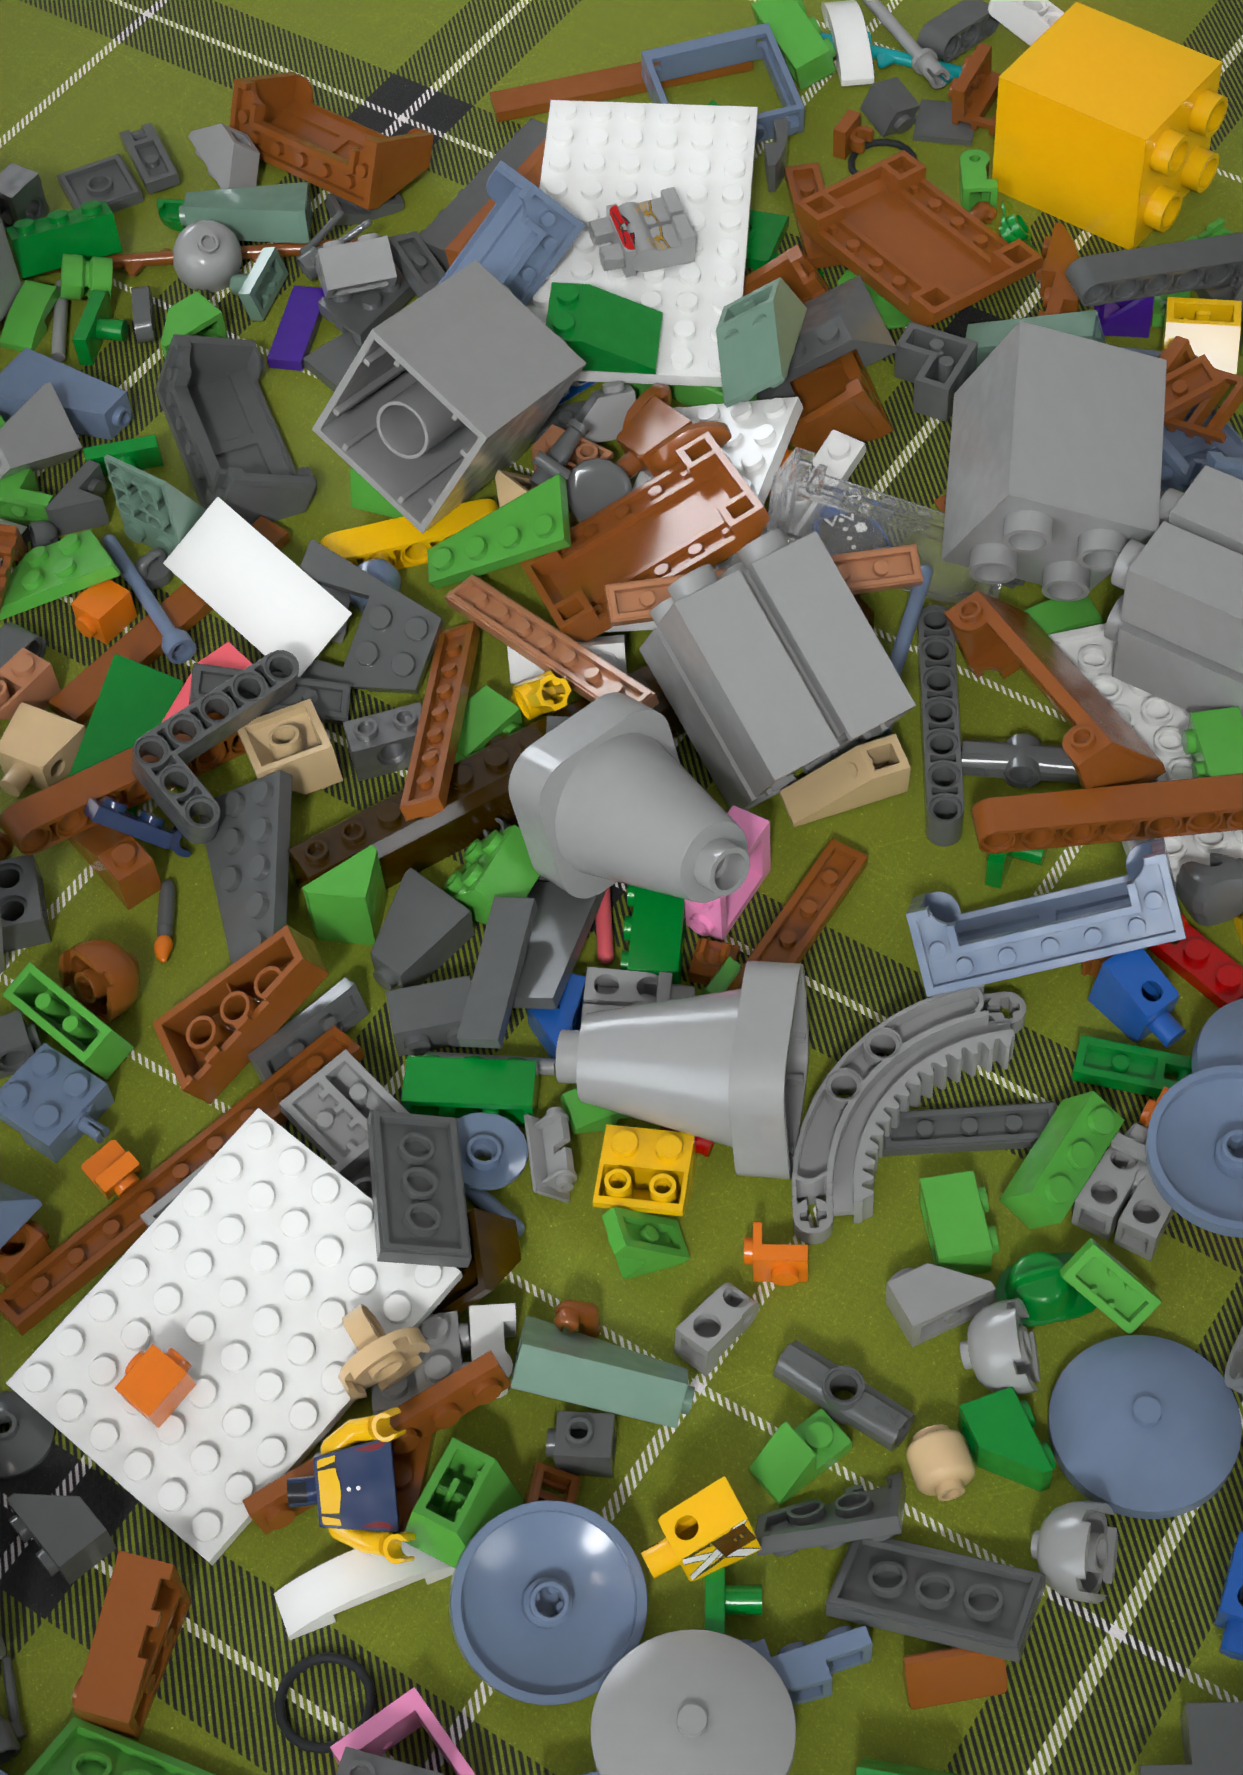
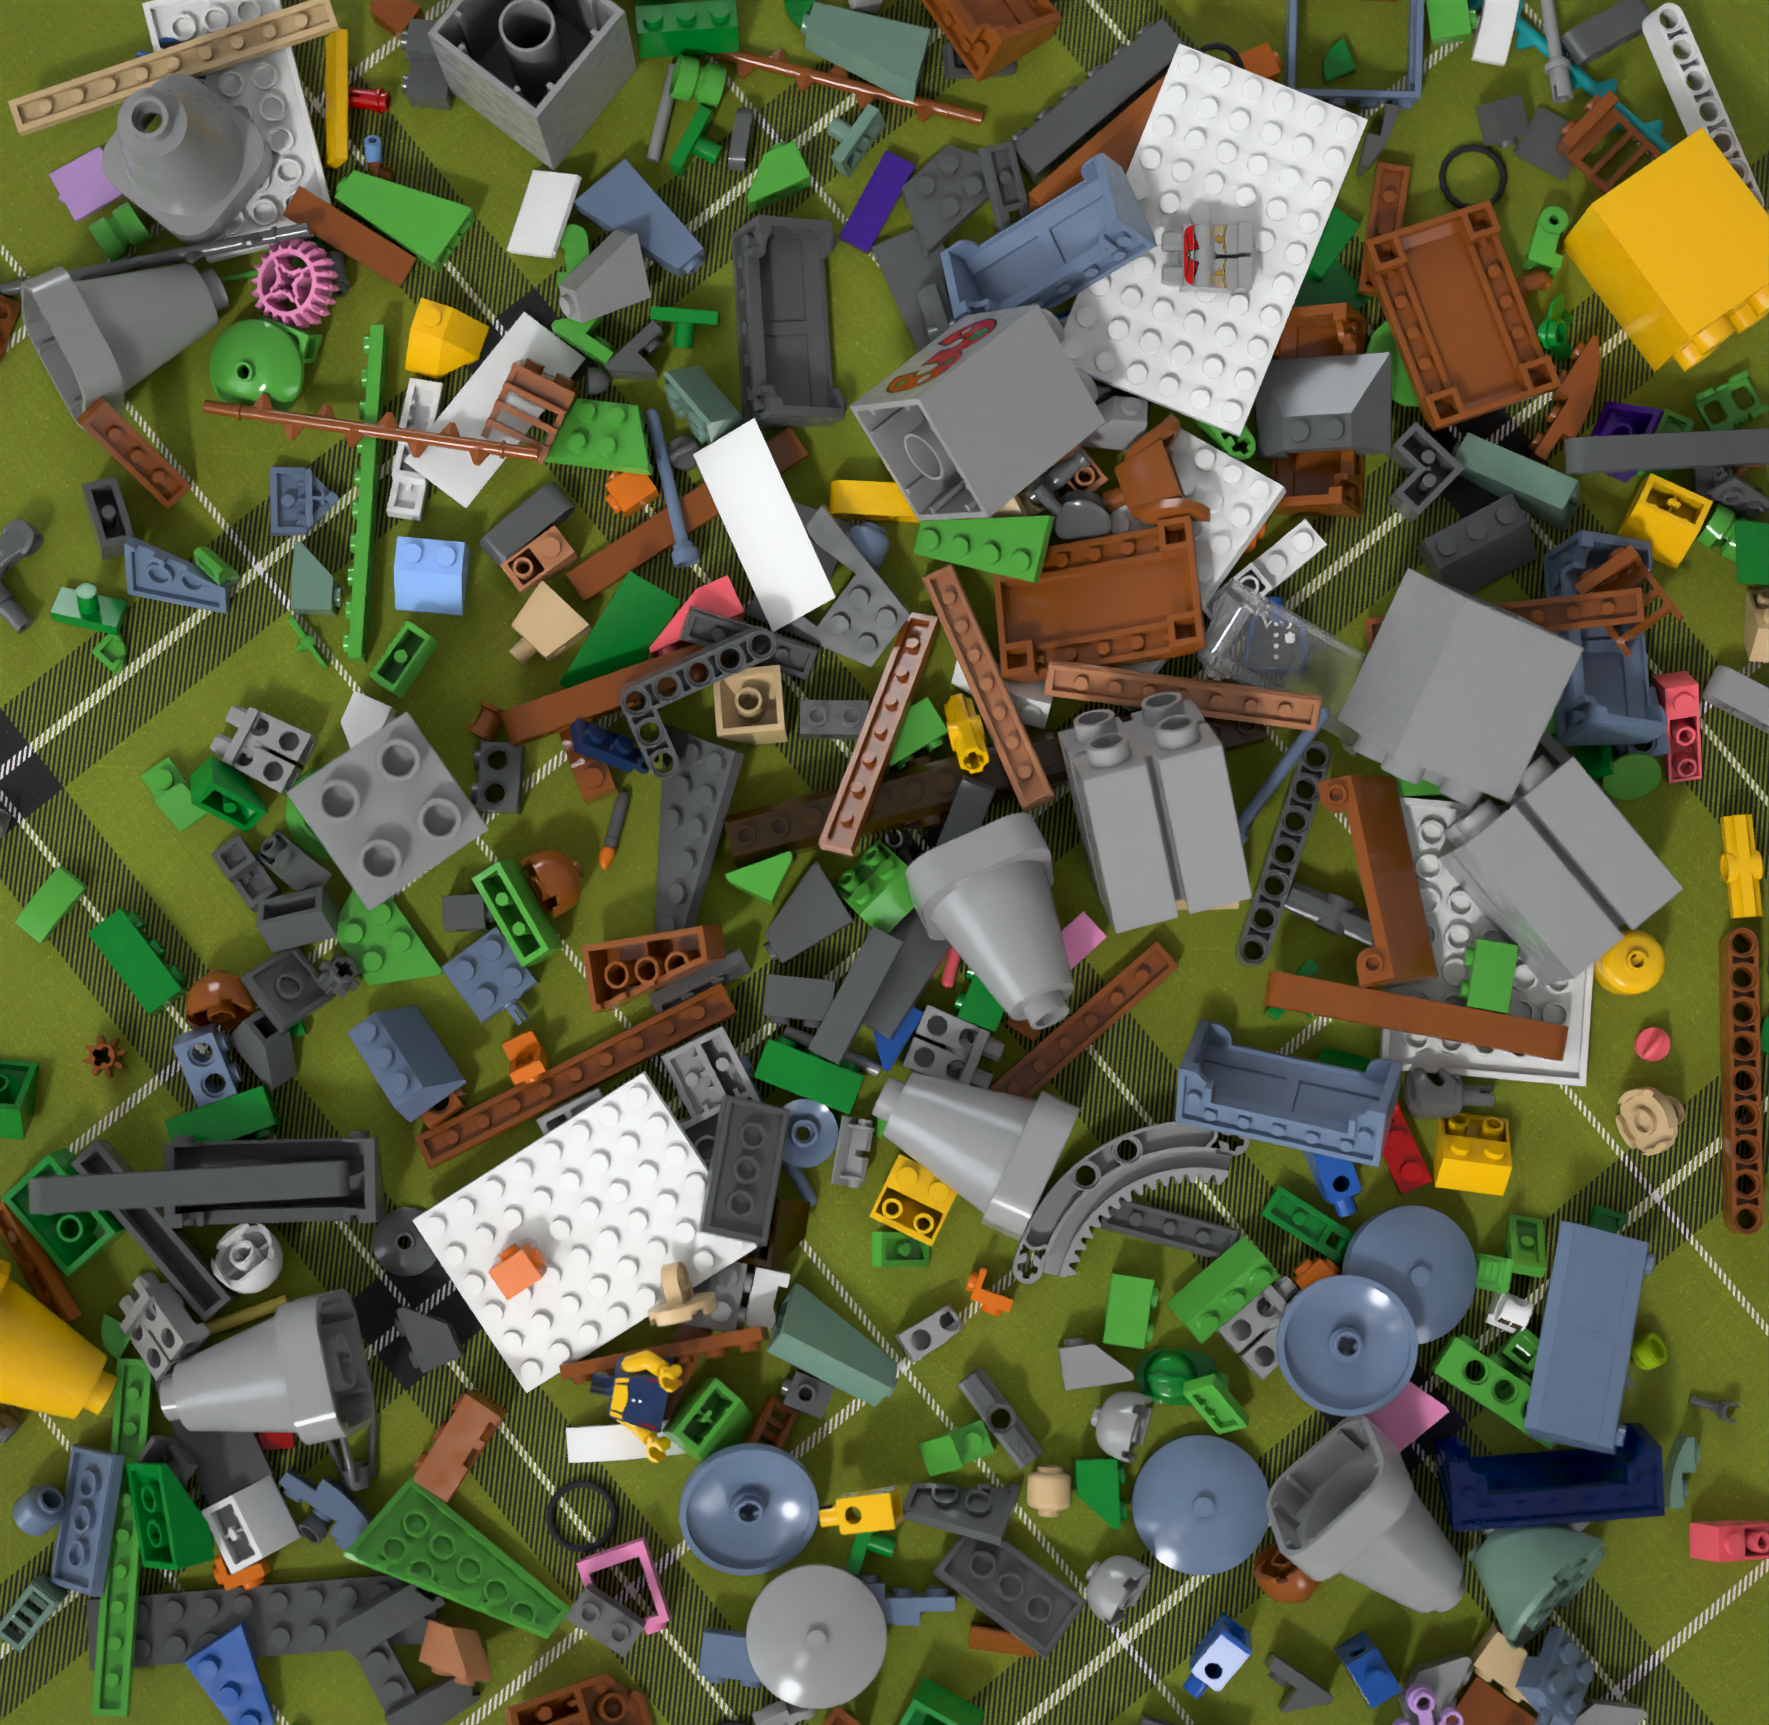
camera: 10 degrees right, 30 degrees up
(27, 316) = (635, 103): bright green slope -> none
(207, 255) = (814, 90): light grey cylinder -> none
(309, 253) = (913, 131): dark grey plant -> none
(355, 265) = (944, 173): light grey slope -> none
(579, 1316) = (828, 1296): dark orange arm -> none
(605, 328) = (1138, 357): green slope -> none
(723, 977) = (1024, 1047): bright green tile -> none
(758, 340) = (1268, 421): sand green slope -> none
(850, 135) = (1453, 136): dark orange tile -> none

